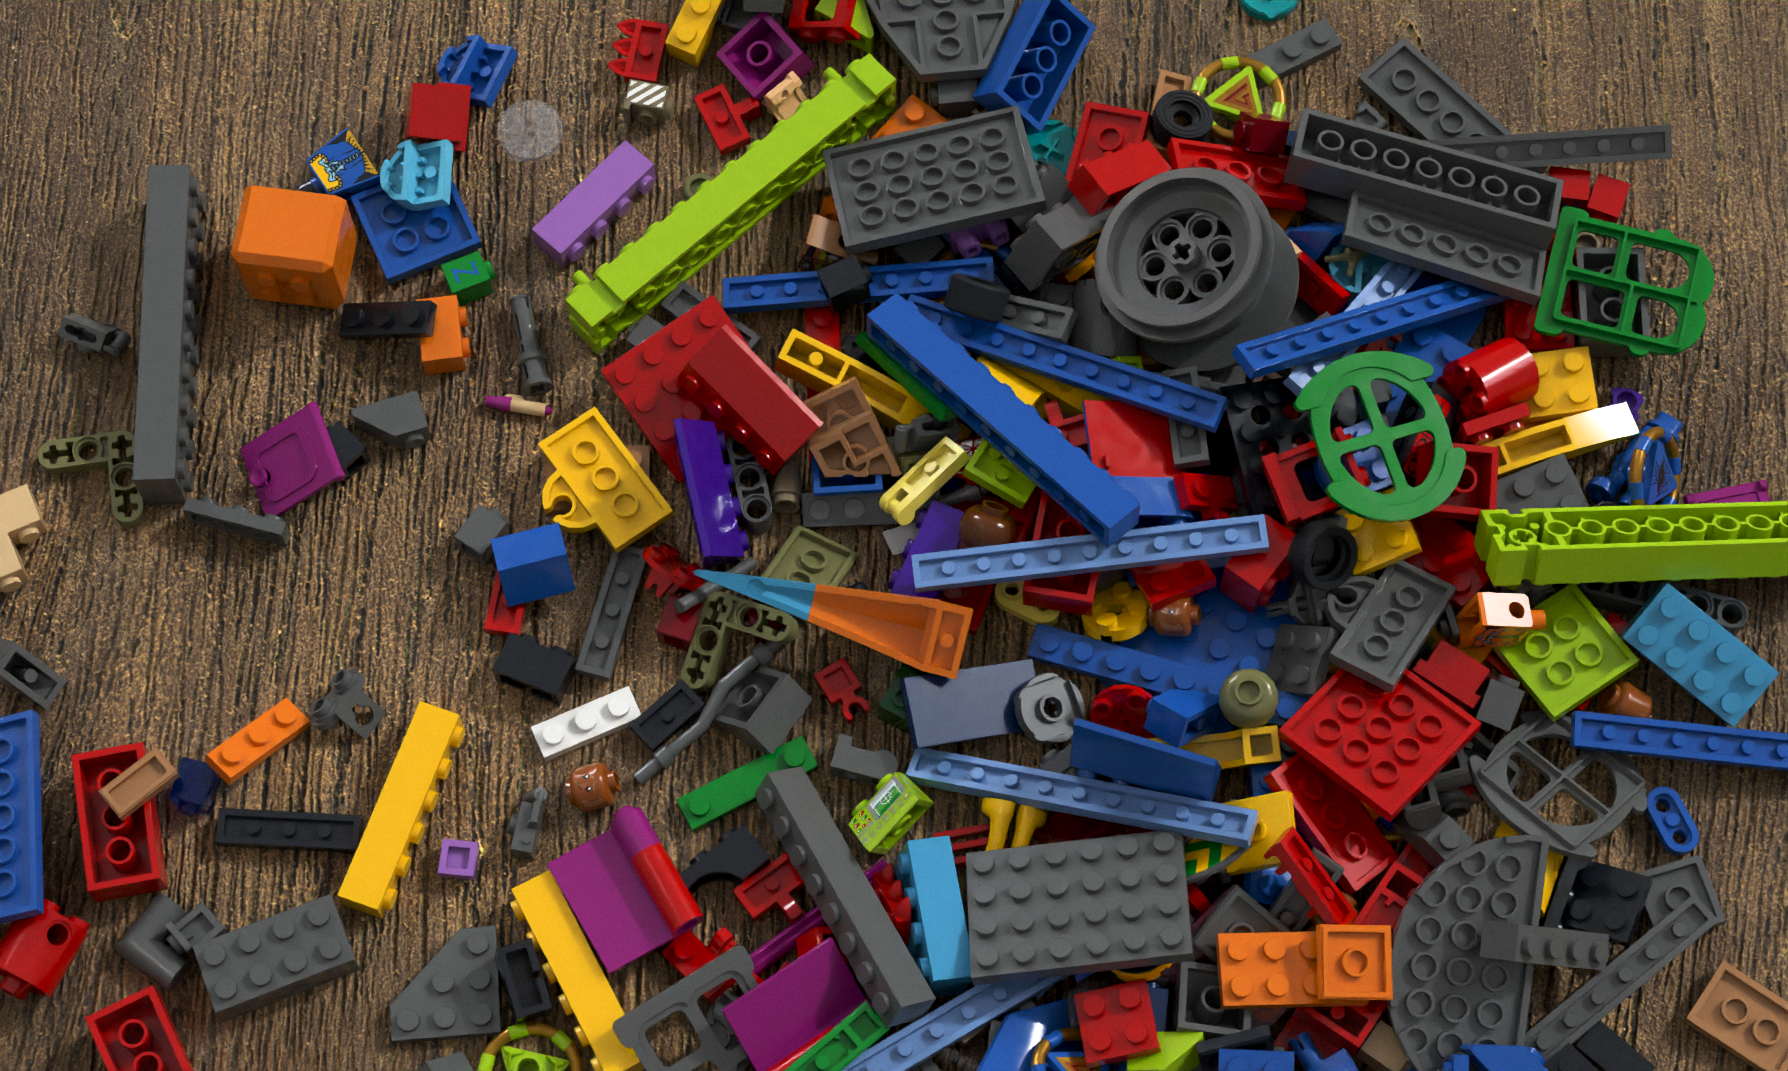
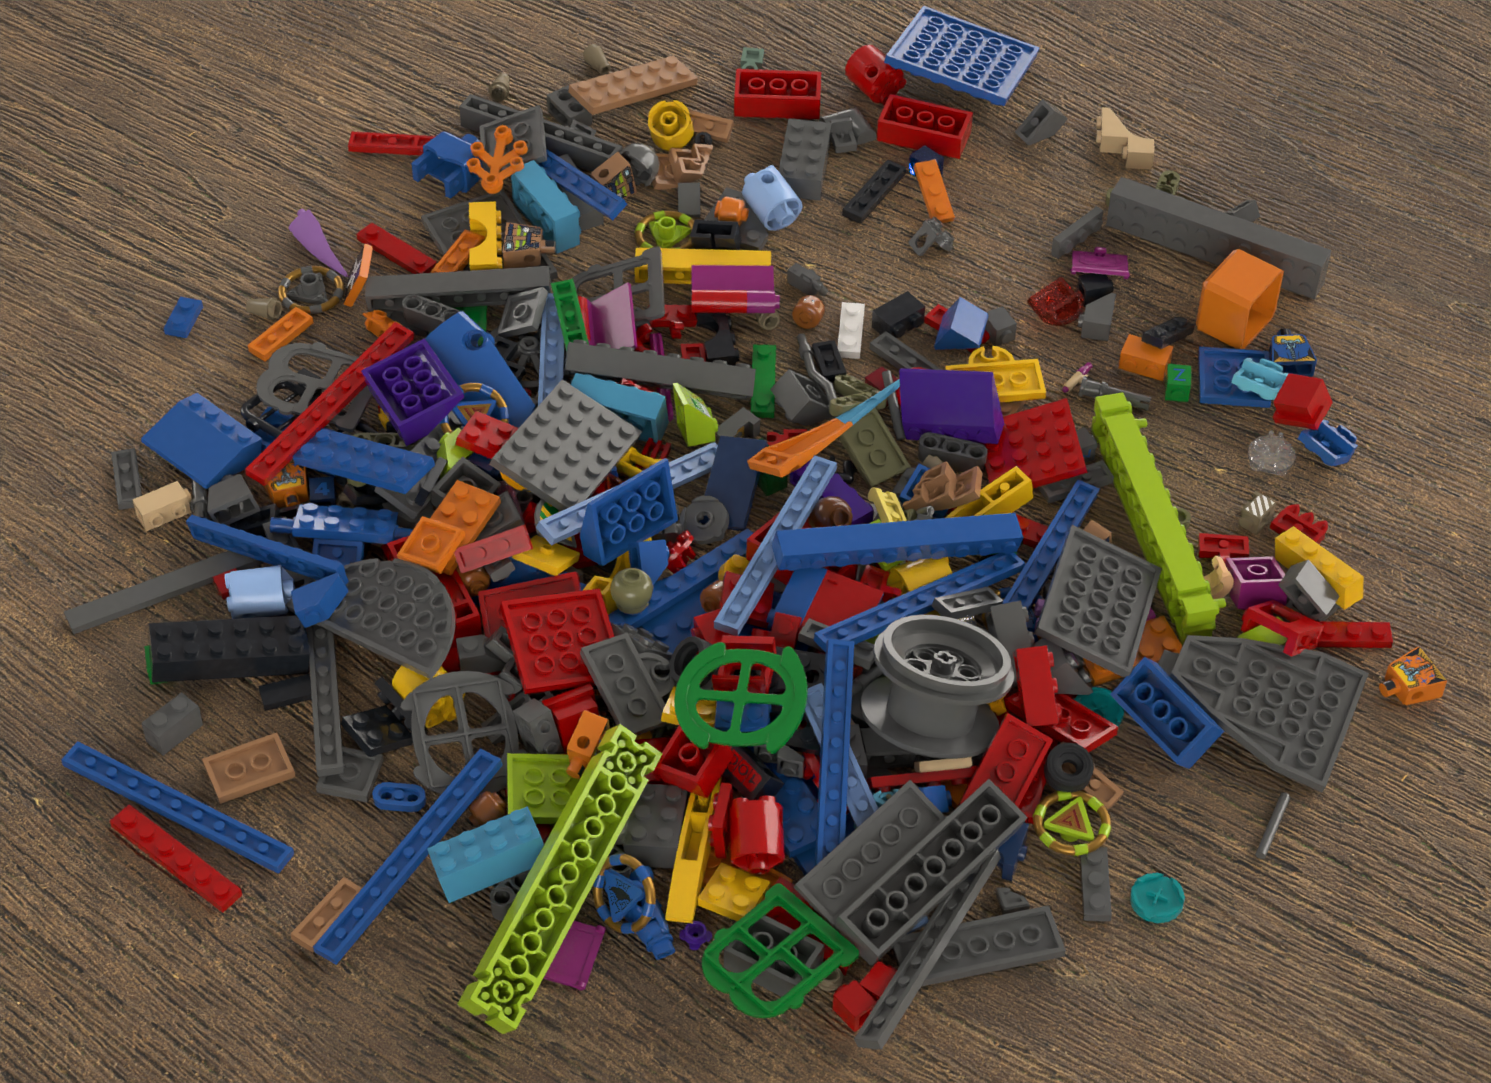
camera: 120 degrees right, 20 degrees down
(139, 783) = (936, 127): medium nougat tile -> none
(393, 484) = (1057, 303): none -> clear red slope
(401, 810) = (854, 235): yellow brick -> none
(404, 943) = (771, 198): none -> light blue cylinder
(458, 859) = (807, 247): medium lavender plate -> none
(461, 986) = (731, 210): none -> orange head
(594, 204) = (1196, 460): medium lavender brick -> none
(749, 400) = (999, 447): red slope -> none
(845, 283) = (1051, 527): black brick -> none
(976, 297) = (983, 574): black tyre -> none
(1261, 133) = (1034, 804): dark red brick -> none
(1544, 945) = (375, 624): dark grey arch -> none

